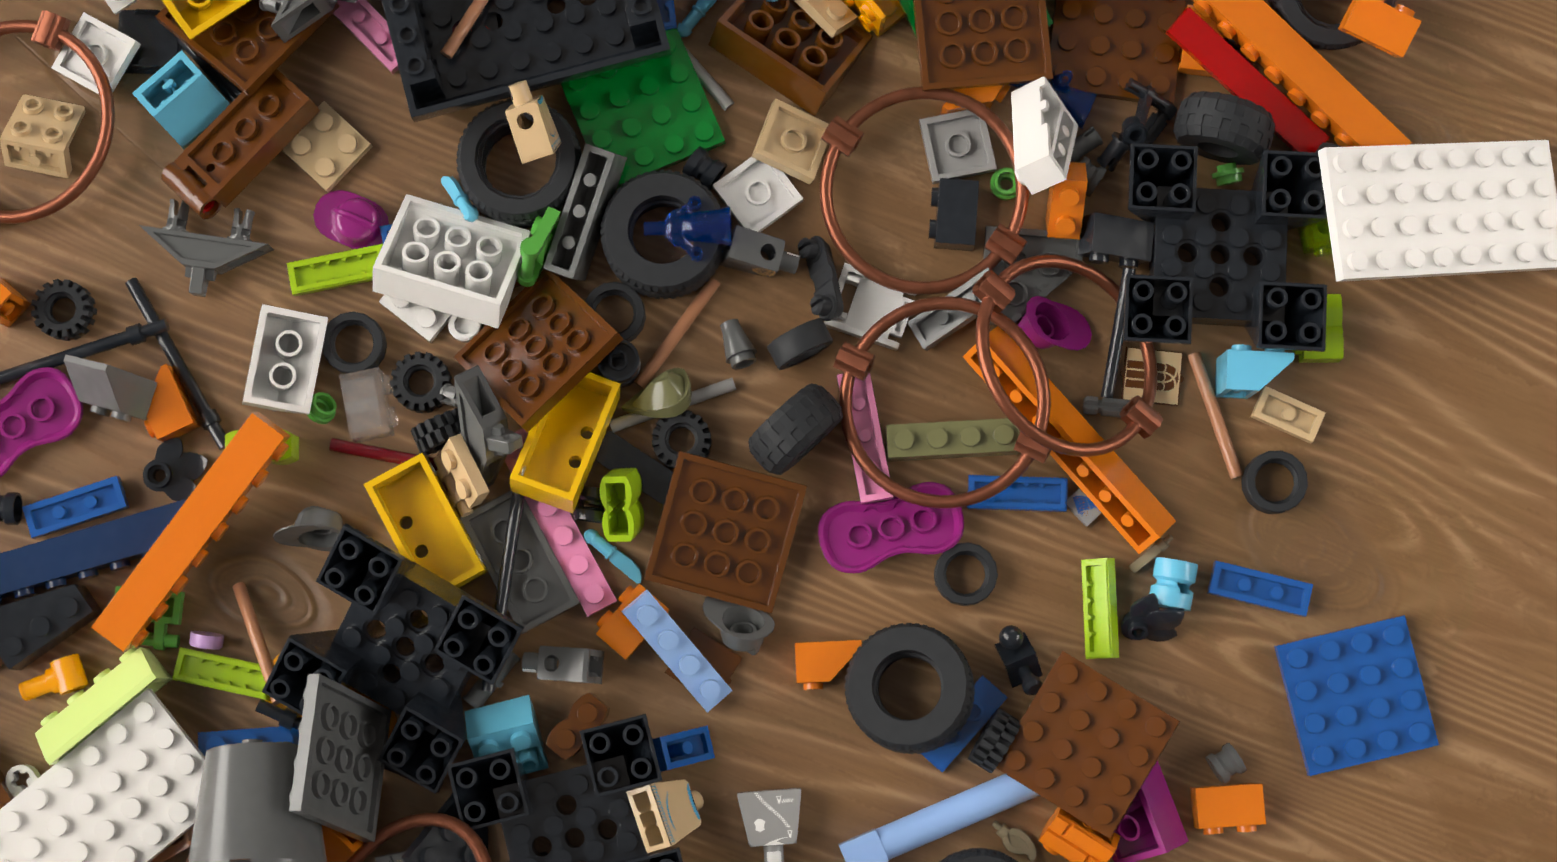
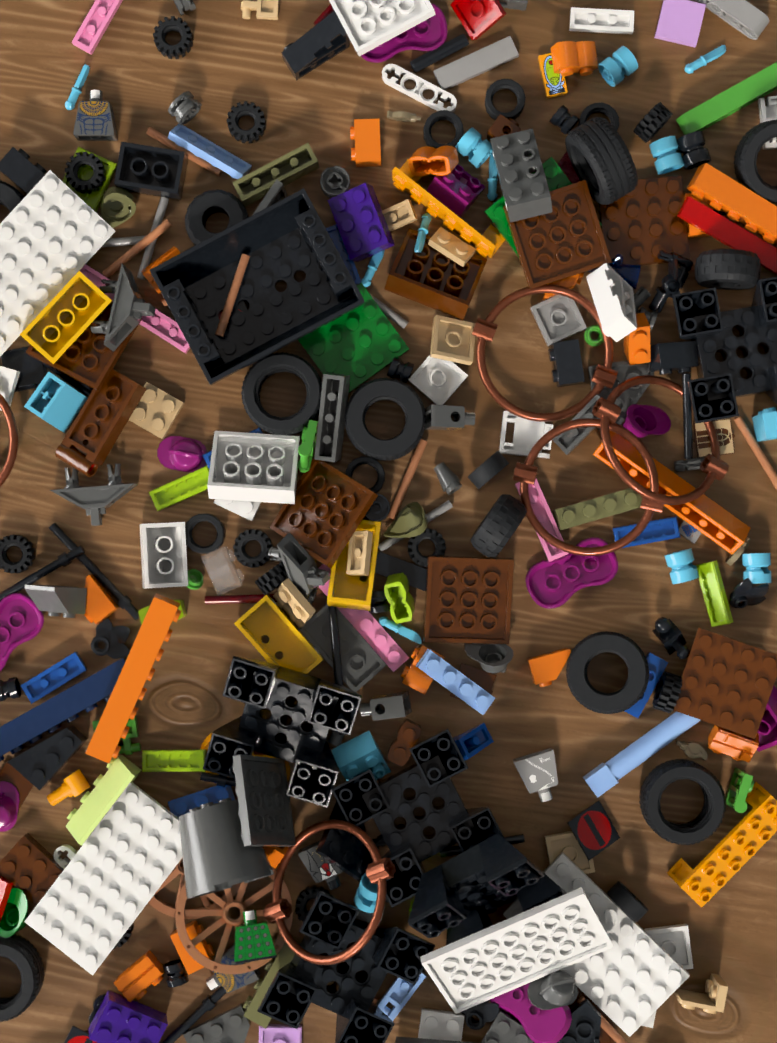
camera: 10 degrees left, 5 degrees up
(206, 640) = (157, 742): lavender tile -> none
(254, 631) = (187, 730): nougat bar -> none
(313, 529) = (210, 656): dark grey piece -> none
(460, 198) = (249, 425): medium azure piece -> none
(463, 329) = (271, 508): white tile -> none
(536, 137) = (291, 378): tan torso -> none
(575, 420) = (359, 553): none -> tan plate
(665, 812) = (473, 786): tan torso -> none
(686, 227) = (399, 414): clear blue piece -> none
(827, 295) = (498, 435): black piece -> none
(989, 567) = (641, 591): black tyre -> none
(1059, 555) = (682, 566): none -> medium azure wheel
(1228, 174) = (734, 297): bright green plate -> none

